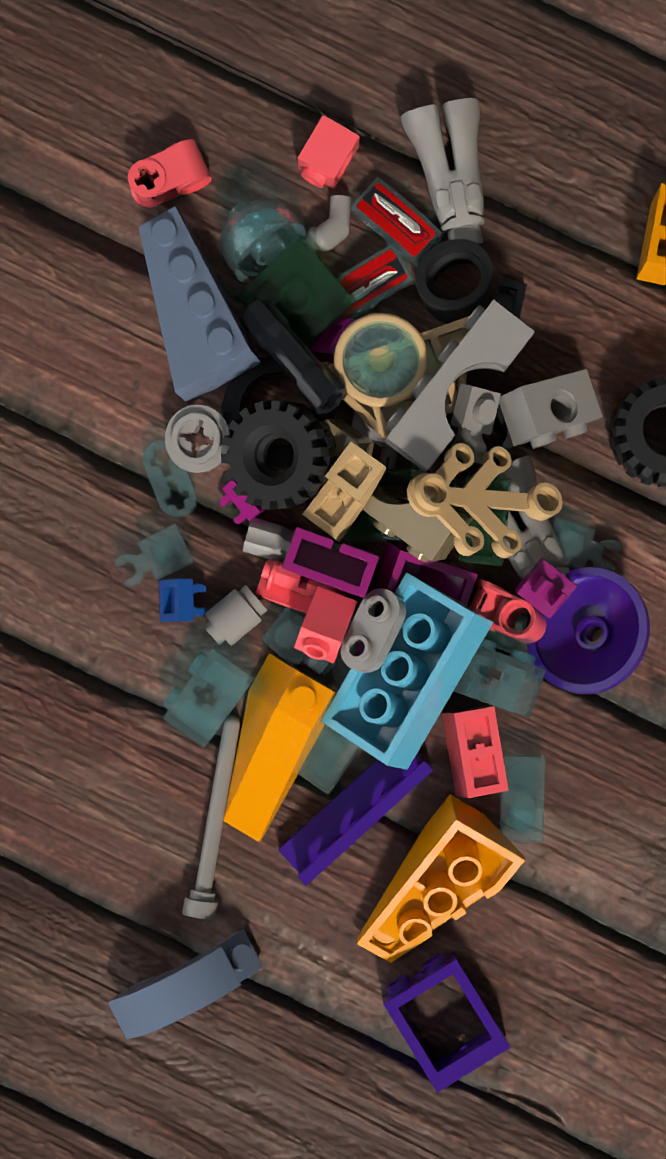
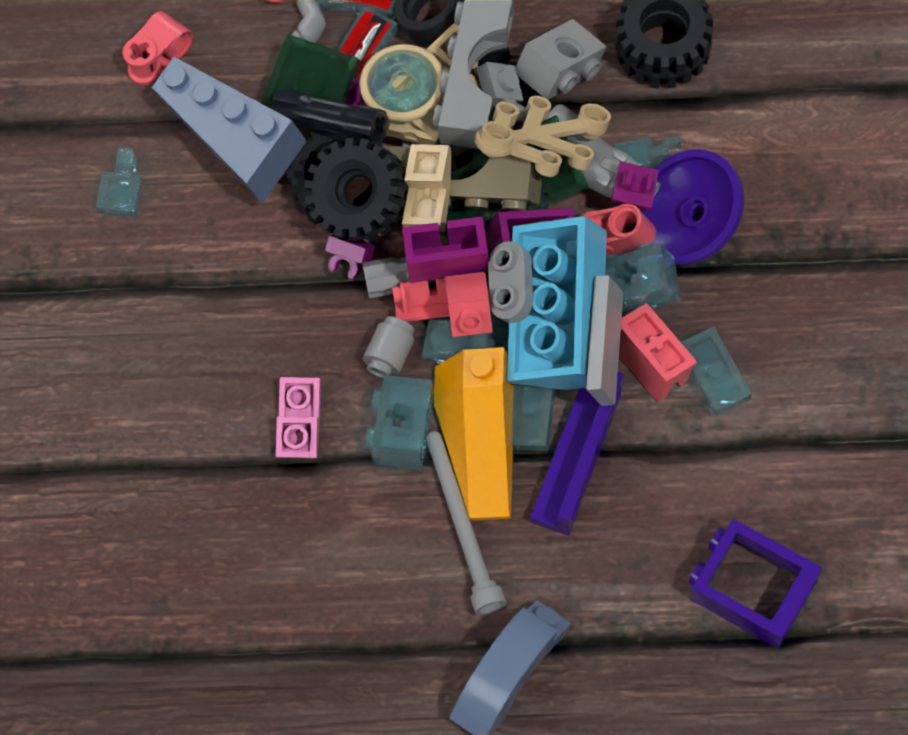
camera: 20 degrees left, 20 degrees down
(61, 313) = (121, 190): none -> clear light blue plate
(118, 637) = (298, 417): none -> bright pink slope
(160, 482) = (271, 278): clear light blue beam -> none
(161, 553) = (299, 331): clear light blue plate -> none
(177, 600) = (334, 359): blue tile -> none
(189, 421) = (269, 214): light grey gear -> none
(257, 236) = (252, 51): clear light blue cylinder -> none
(430, 736) = (604, 340): none -> light grey tile
(446, 871) = (683, 462): light orange wedge -> none

